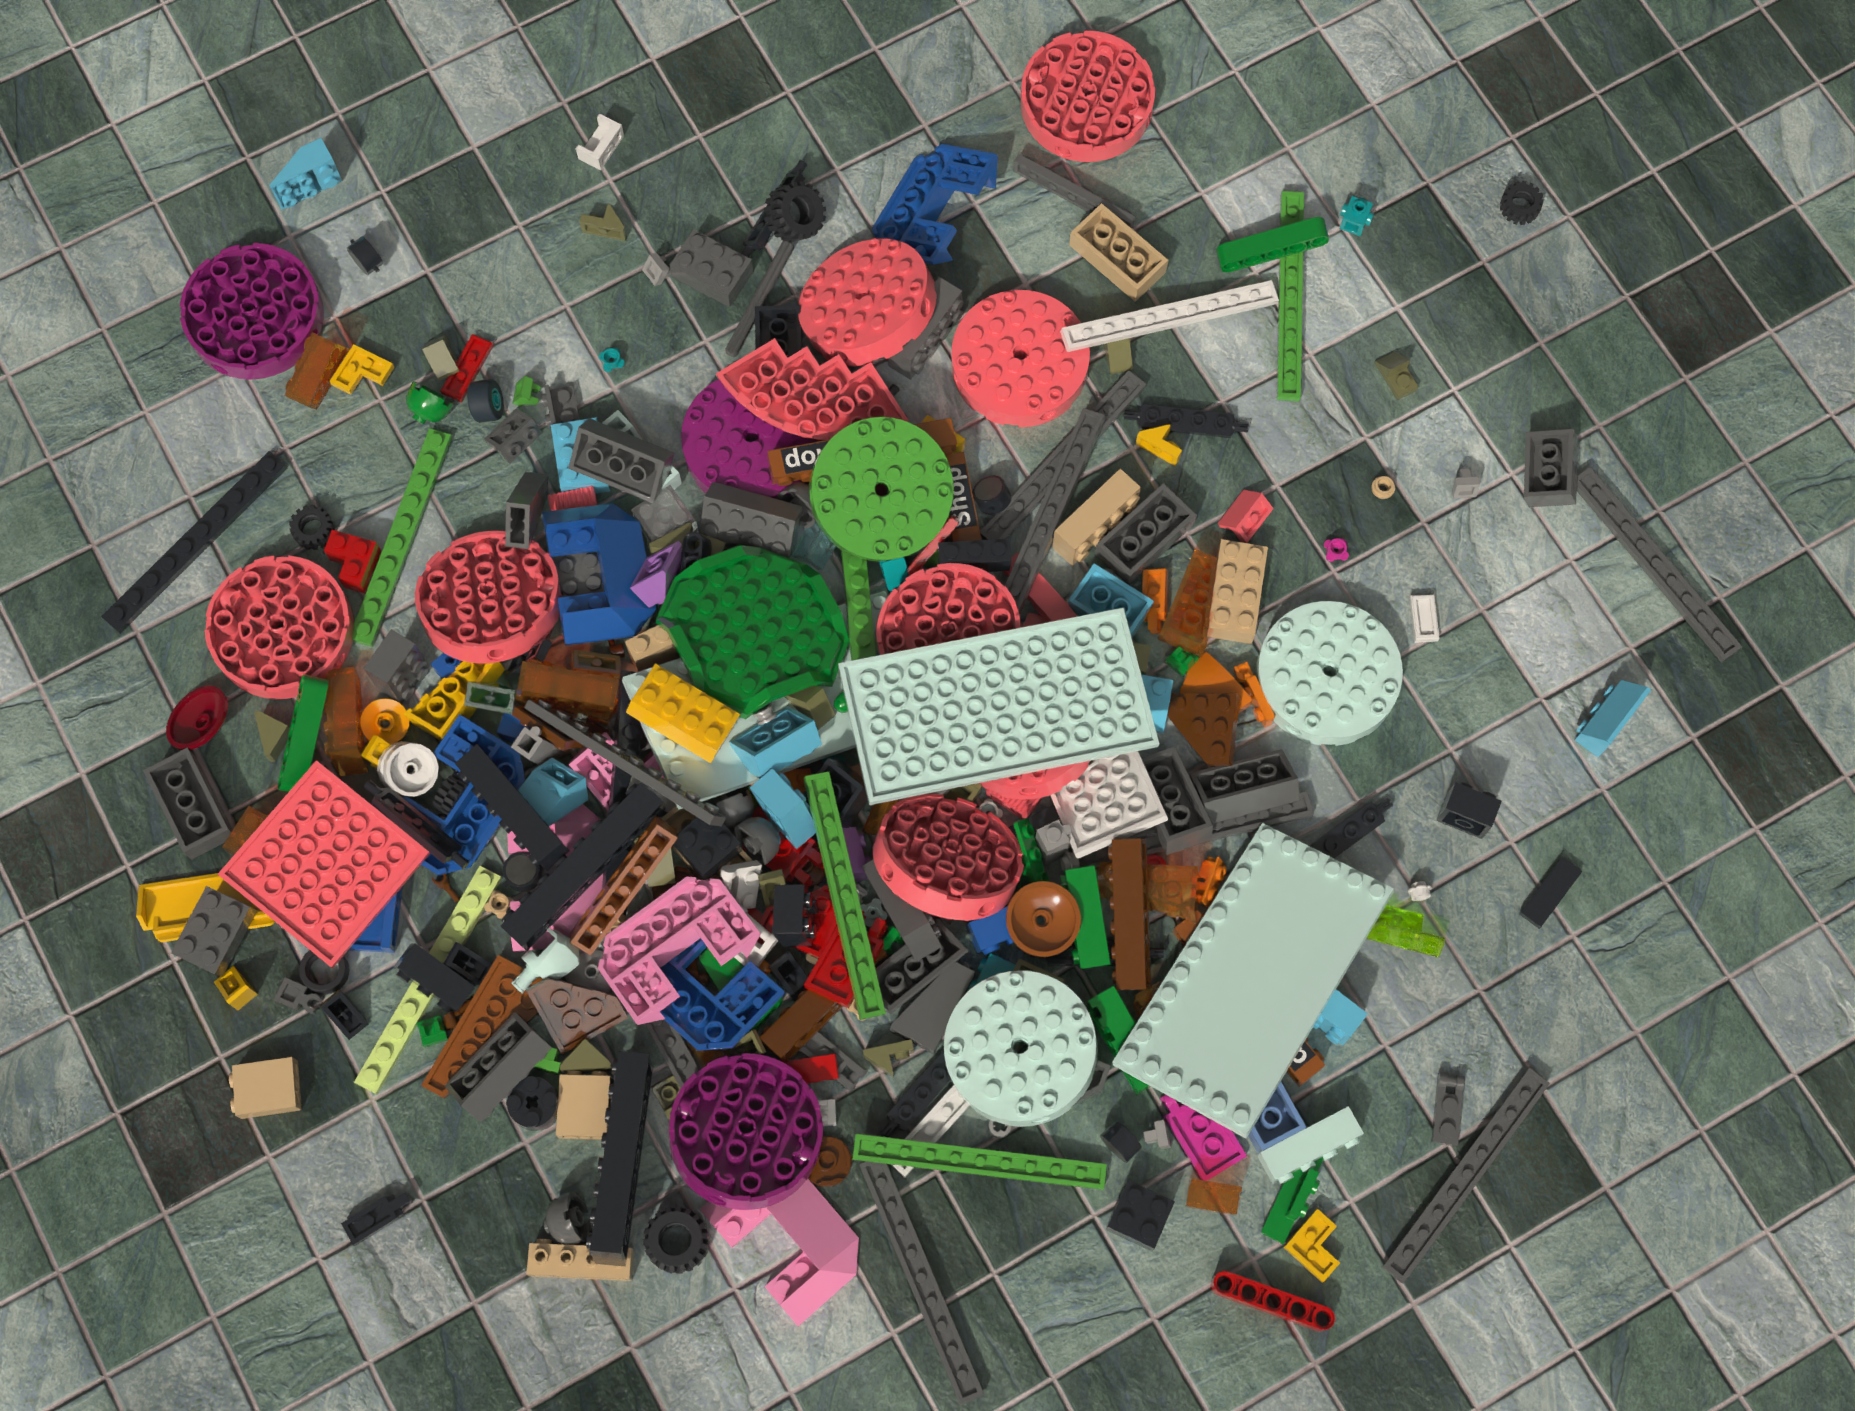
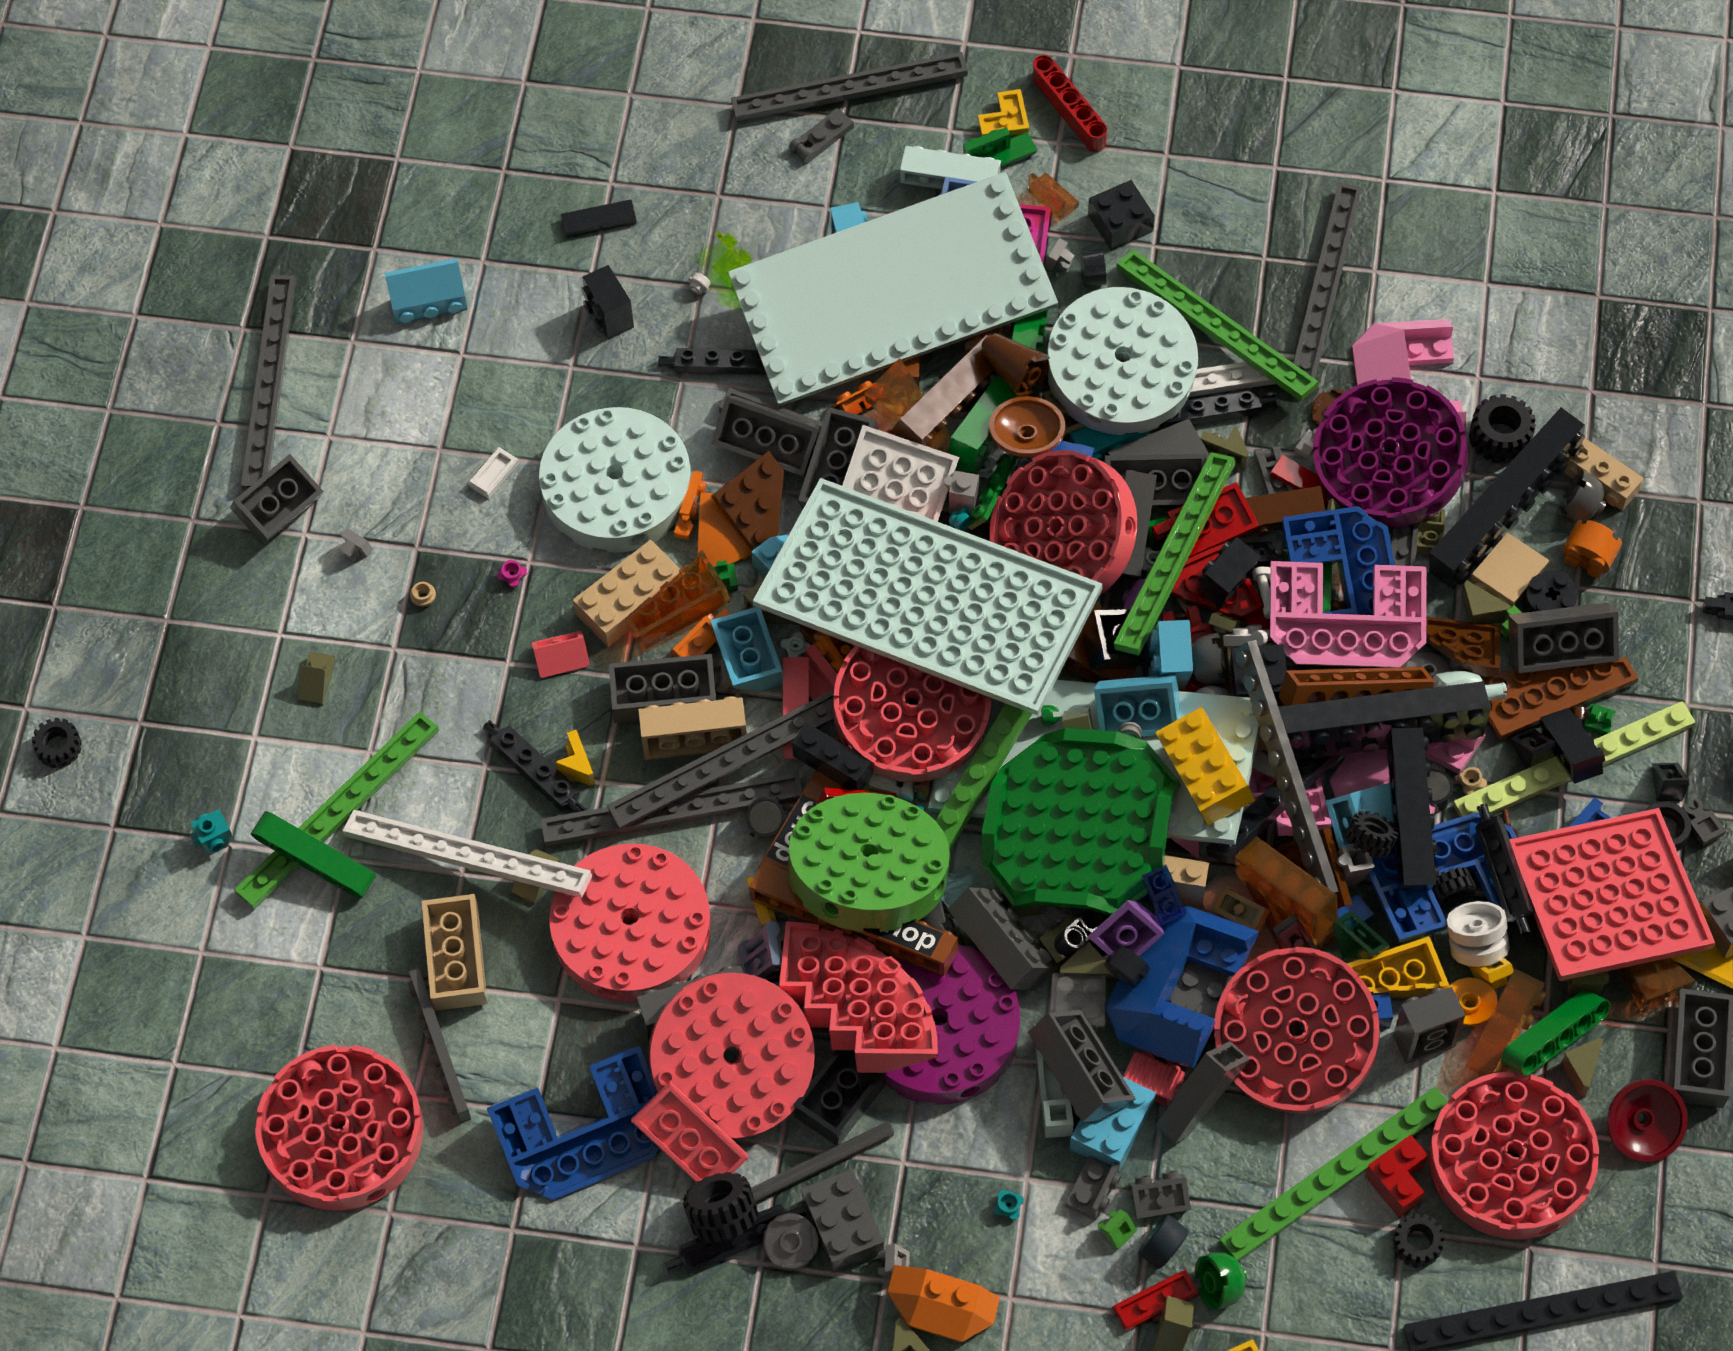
camera: 140 degrees left, 10 degrees down
(529, 1173) = (1591, 548): none -> orange brick
(532, 751) = (1372, 834): none -> black tyre
(603, 258) = (941, 1303): none -> orange wedge
(638, 544) = (1127, 966): none -> black piece
(647, 610) = (1163, 895): none -> clear blue slope
(736, 231) = (790, 1241): none -> flat silver tile
(851, 235) = (688, 1135): none -> coral tile
(908, 390) = (765, 958): none -> sand blue plate
(1040, 820) = (960, 519): none -> teal plate
(1100, 971) = (1016, 363): none -> reddish brown cone

